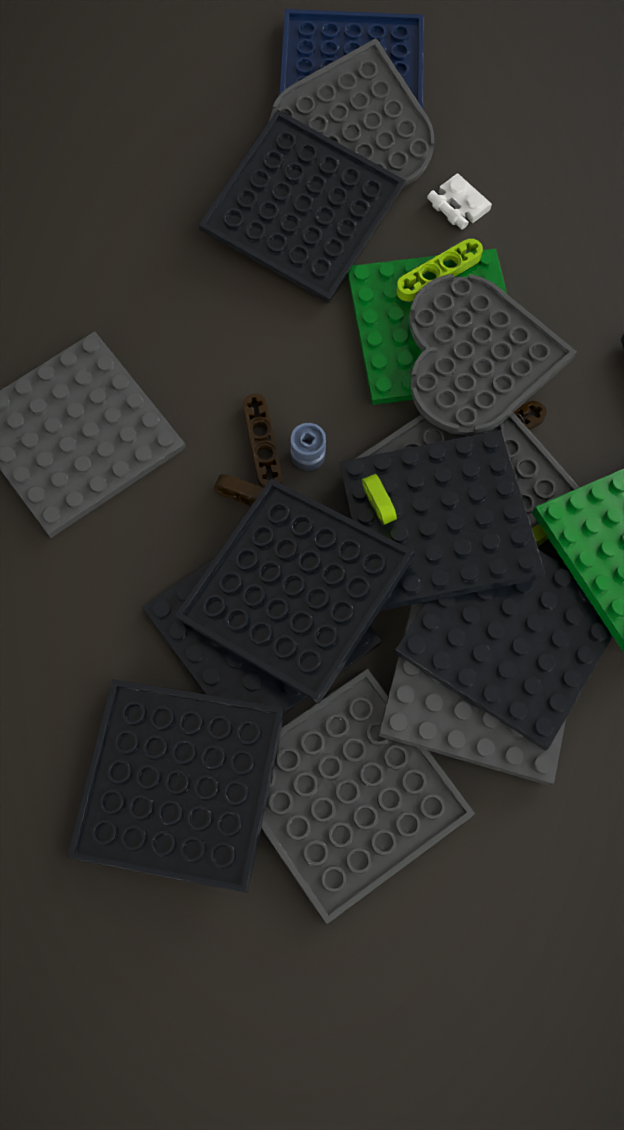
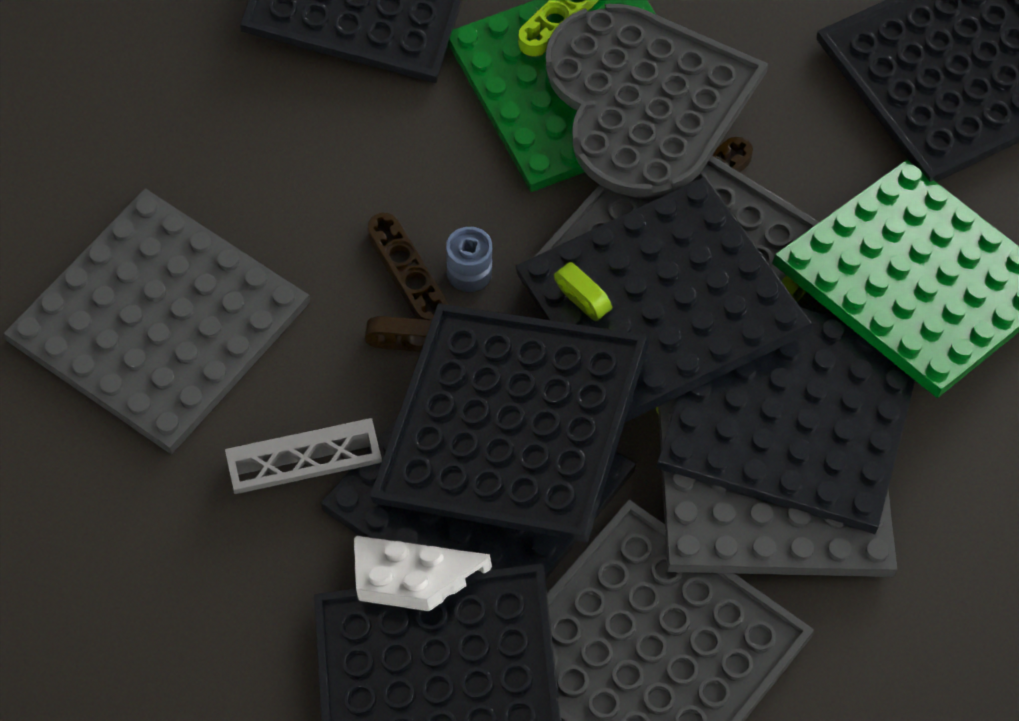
camera: 15 degrees left, 10 degrees down
(139, 562) = (302, 449): none -> light grey fence
(184, 685) = (411, 573): none -> white wing

